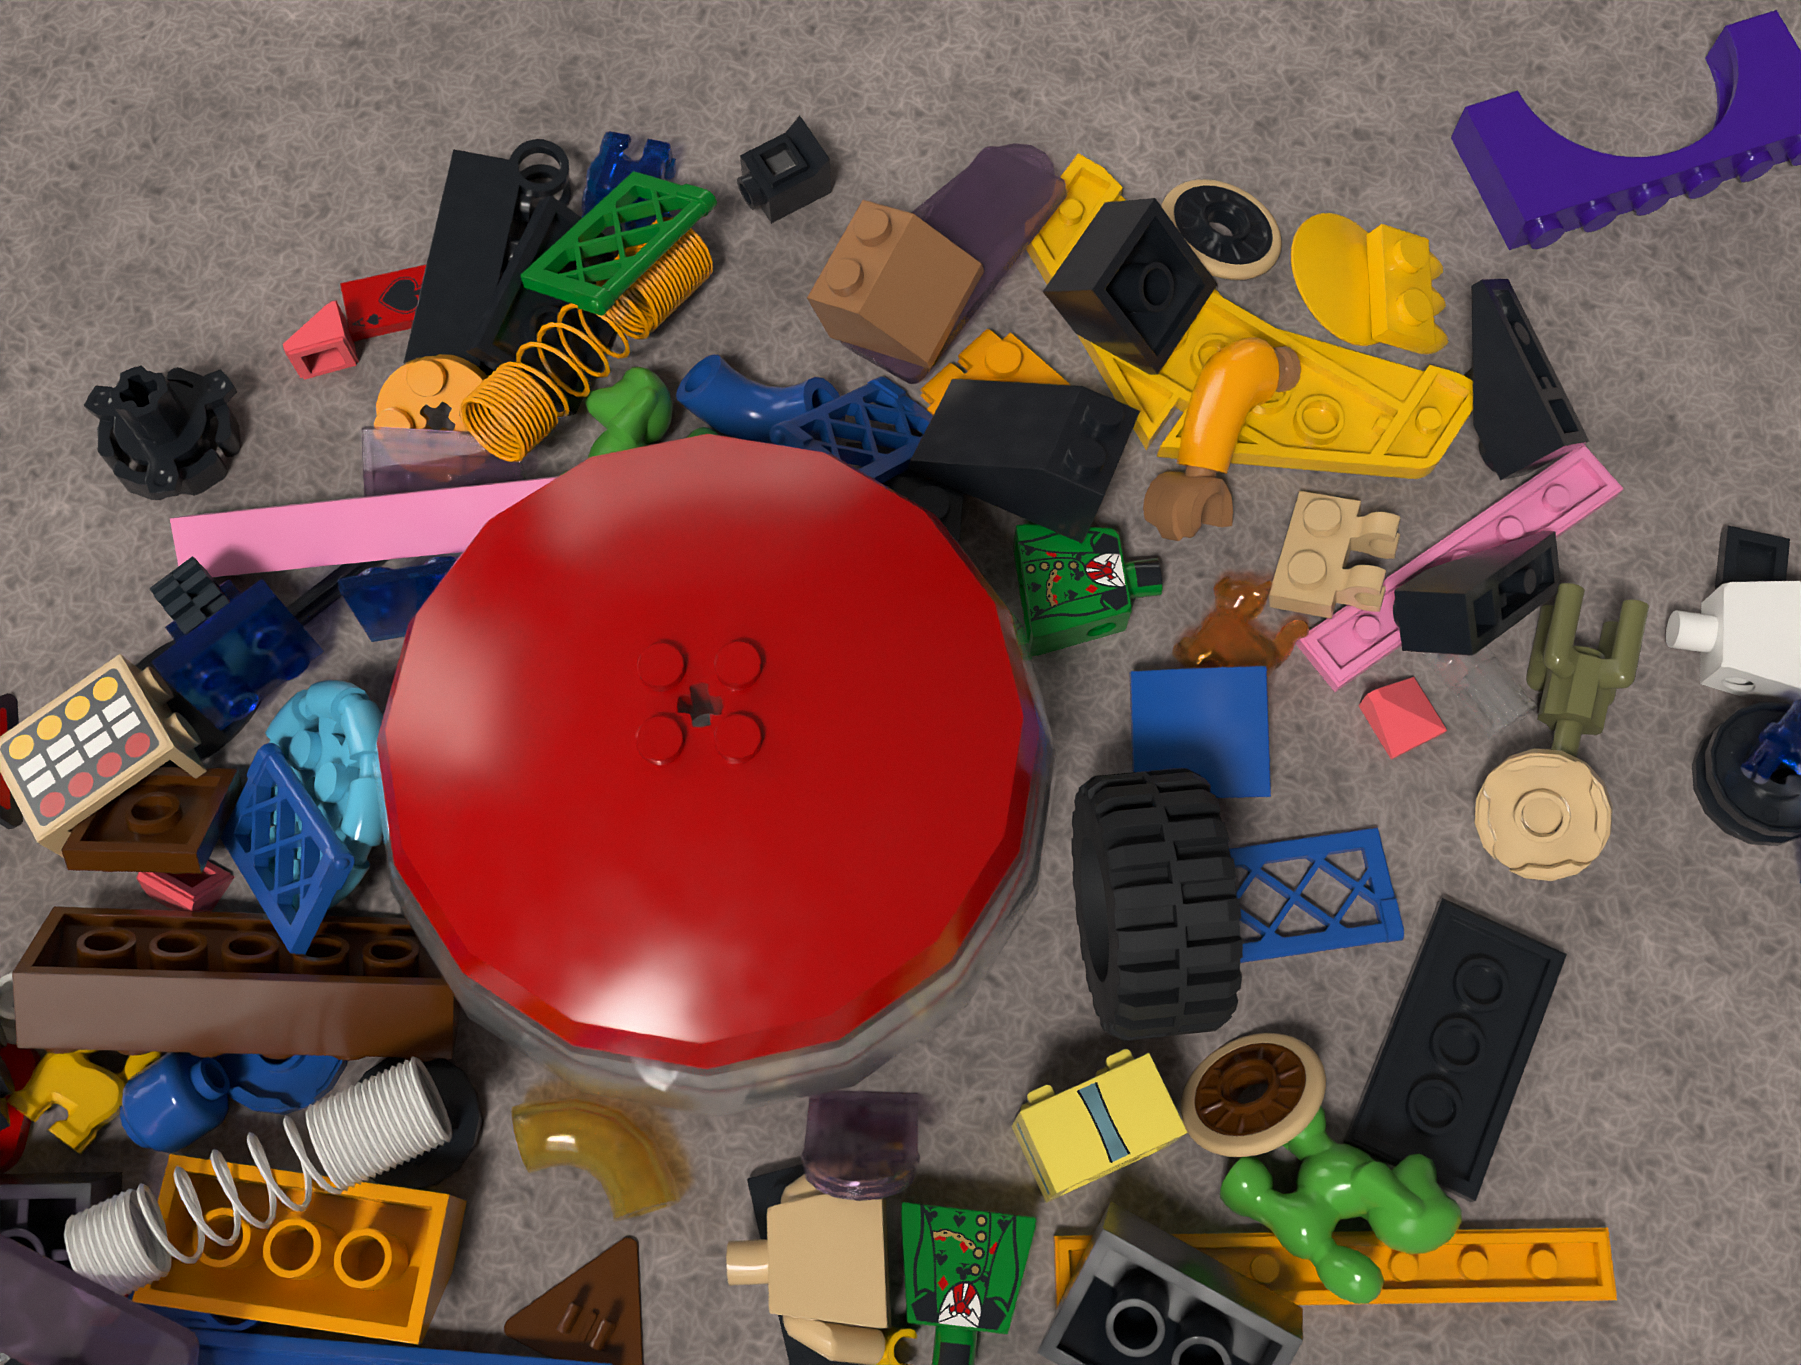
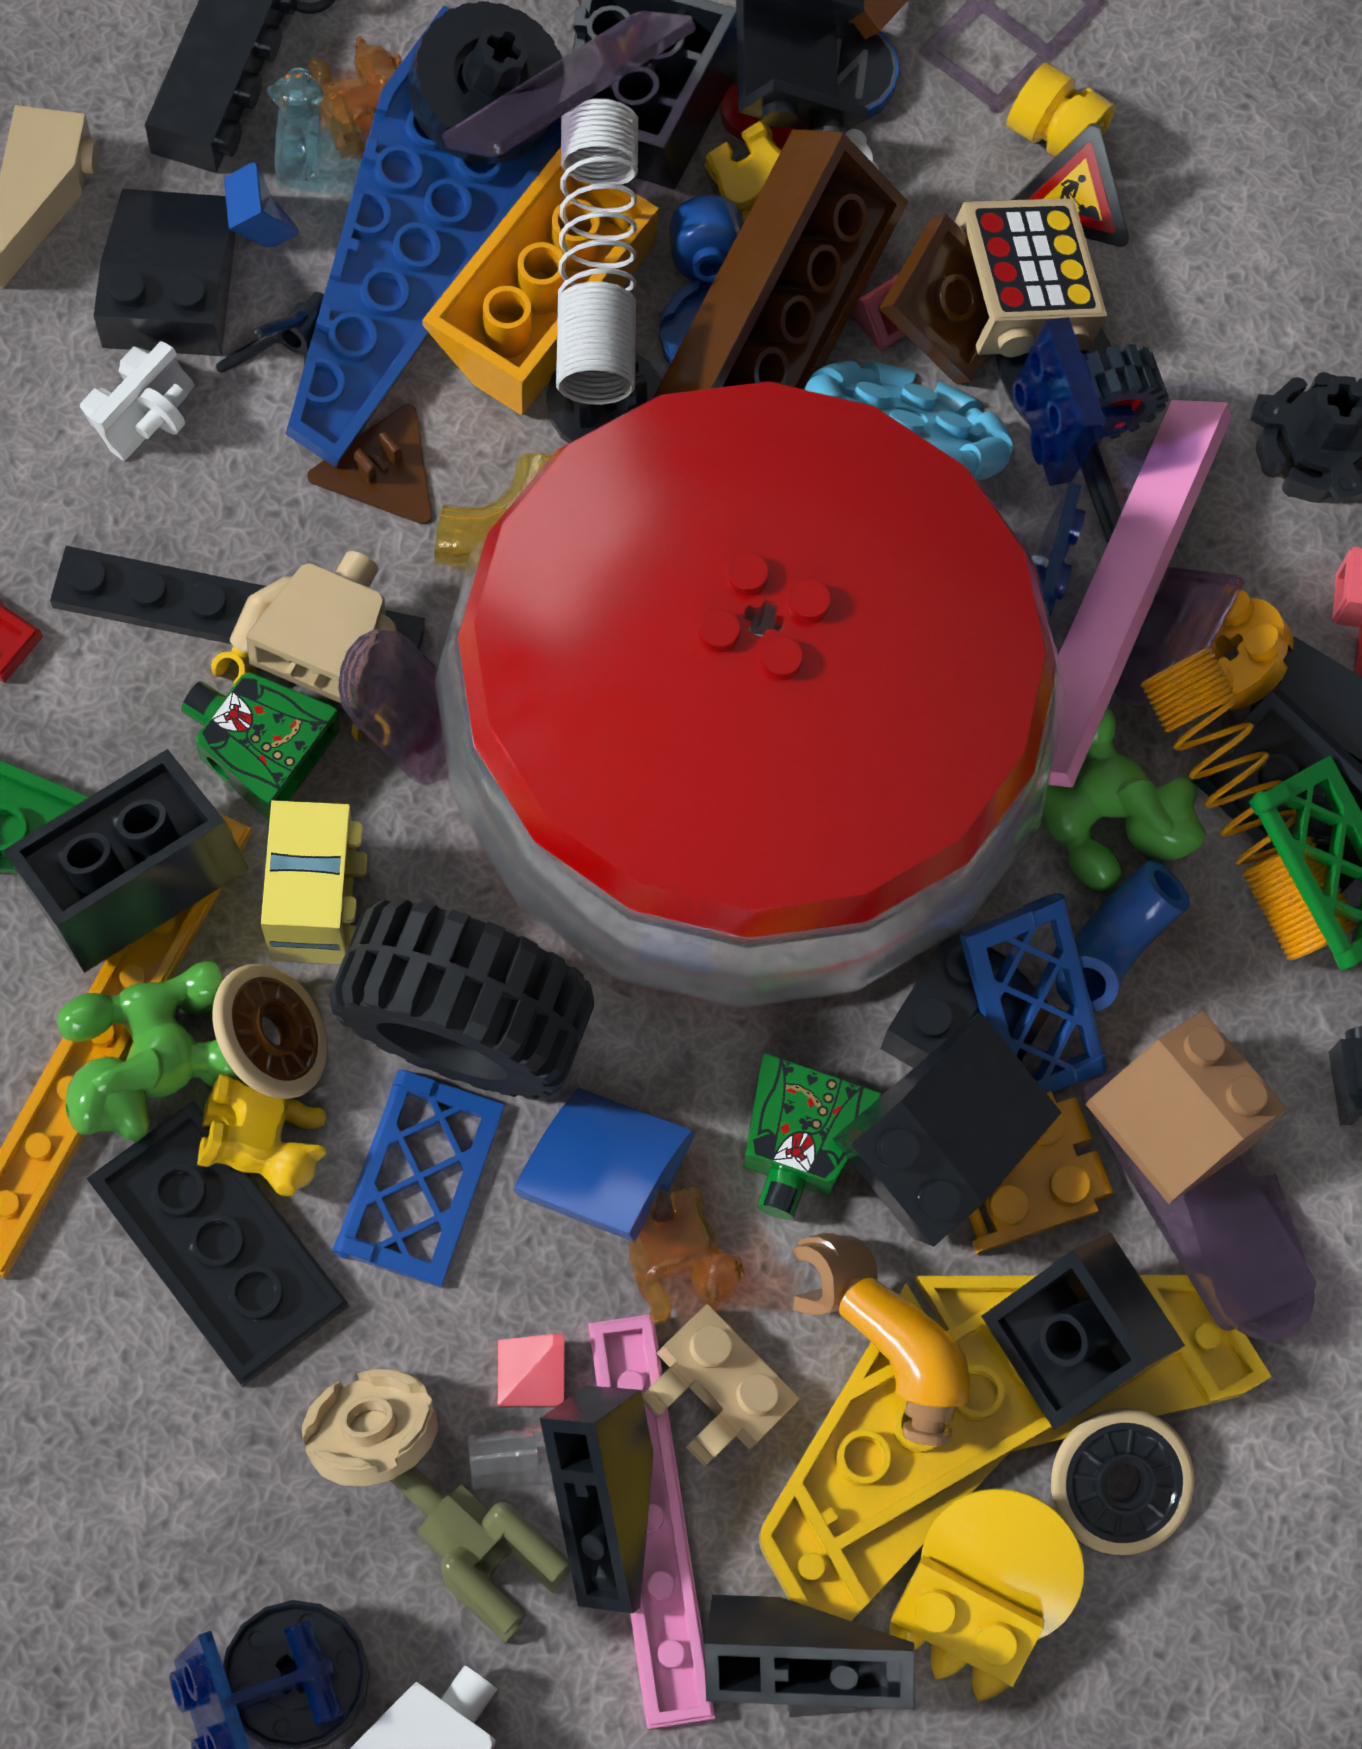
camera: 110 degrees right, 0 degrees up
(317, 877) = (871, 374): blue window -> none
(1357, 1054) = (248, 1135): none -> yellow animal

